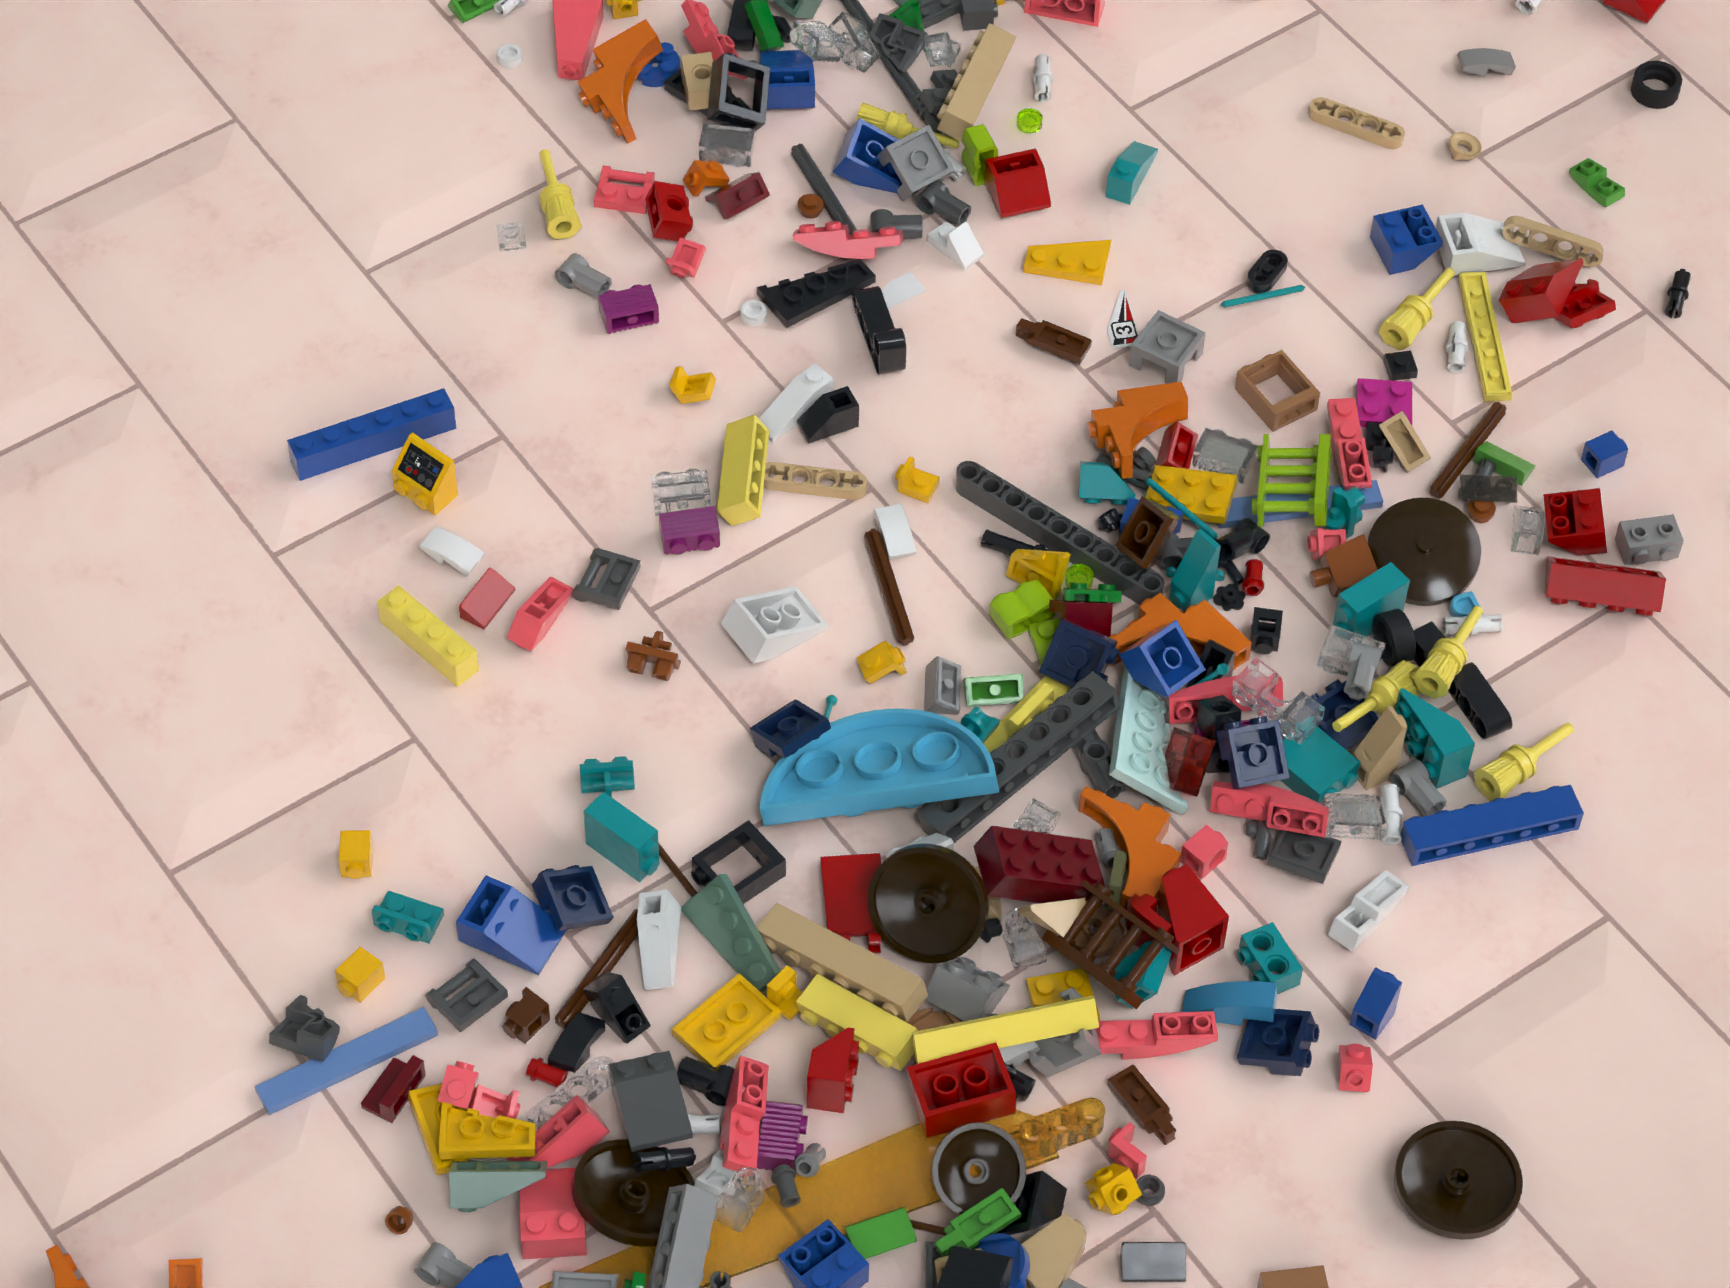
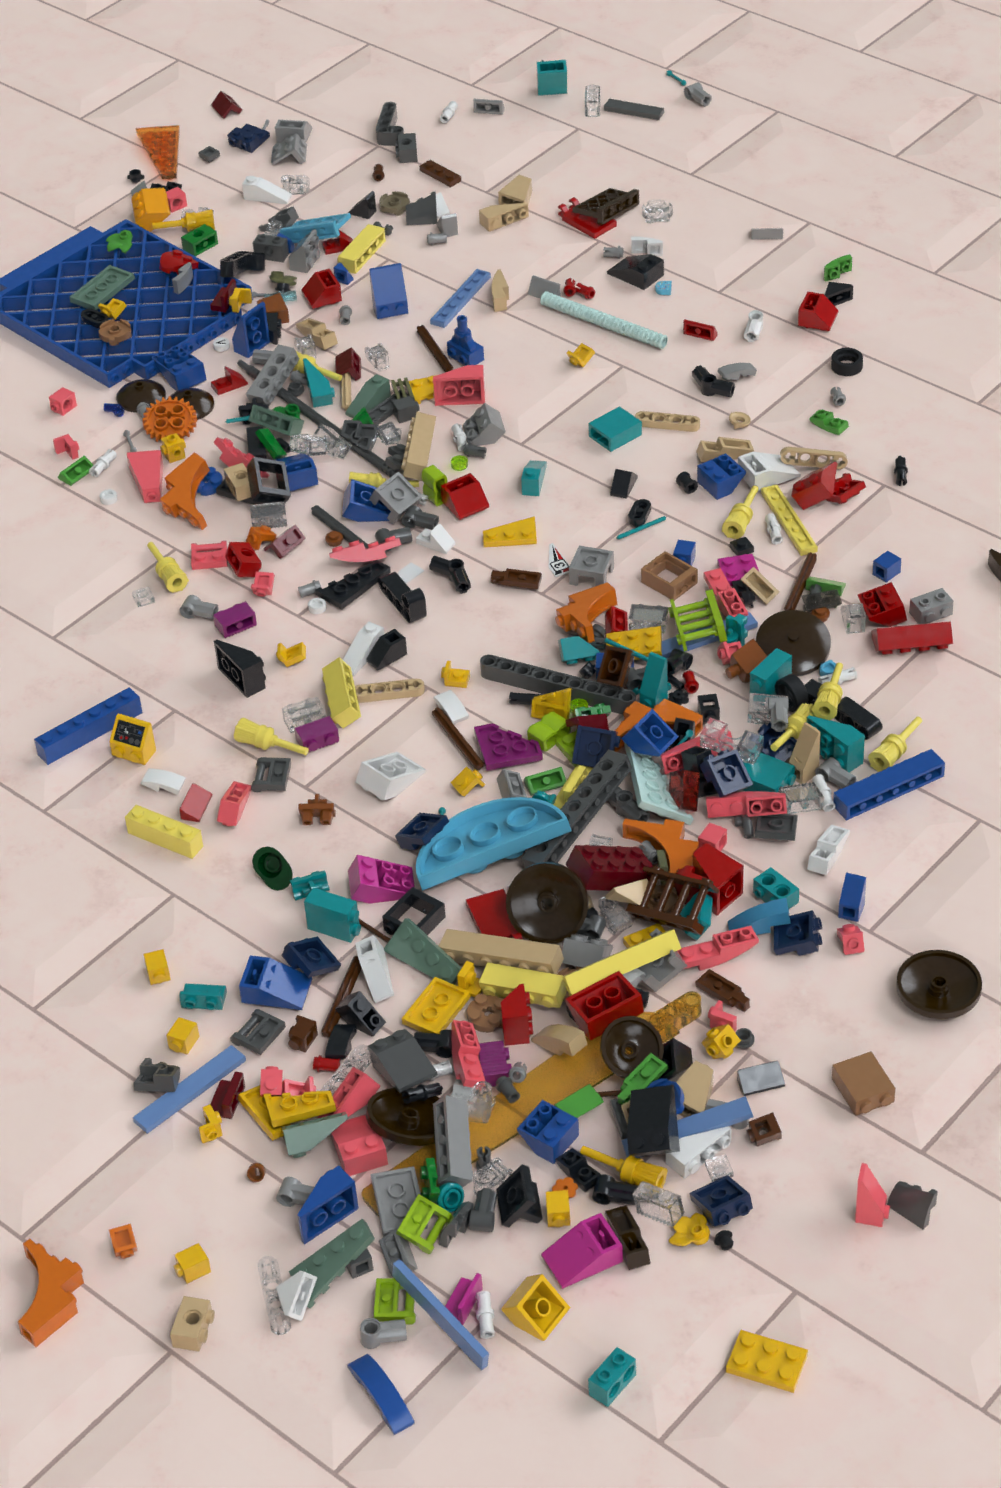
camera: 10 degrees left, 10 degrees down
(358, 1137) = (212, 1128): none -> yellow bracket
(562, 736) = (272, 868): none -> dark green piece
(611, 515) = (263, 737): none -> light yellow piece
(612, 394) = (240, 667): none -> black slope
(708, 794) = (378, 880): none -> dark pink slope
(750, 282) = (309, 588): none -> light grey pin
(781, 1046) = (477, 1009): none -> medium nougat plate
(884, 1125) = (561, 1039): none -> tan slope
(952, 619) = (505, 748): none -> magenta plate
(966, 302) = (454, 569): none -> black piece
(988, 951) = (593, 927): none -> dark grey piece
(1057, 106) = (475, 450): none -> dark grey pin
(1082, 69) = (484, 426): none -> light grey slope
(1258, 215) = (623, 483): none -> black slope
(1274, 118) = (615, 429): none -> teal brick
(1312, 357) = (685, 551): none -> blue brick
(1351, 234) = (686, 482): none -> black bush
(1429, 190) = (733, 447): none -> tan slope
(1437, 74) = (710, 384): none -> black piece
(1624, 145) = (838, 398): none -> light grey pin

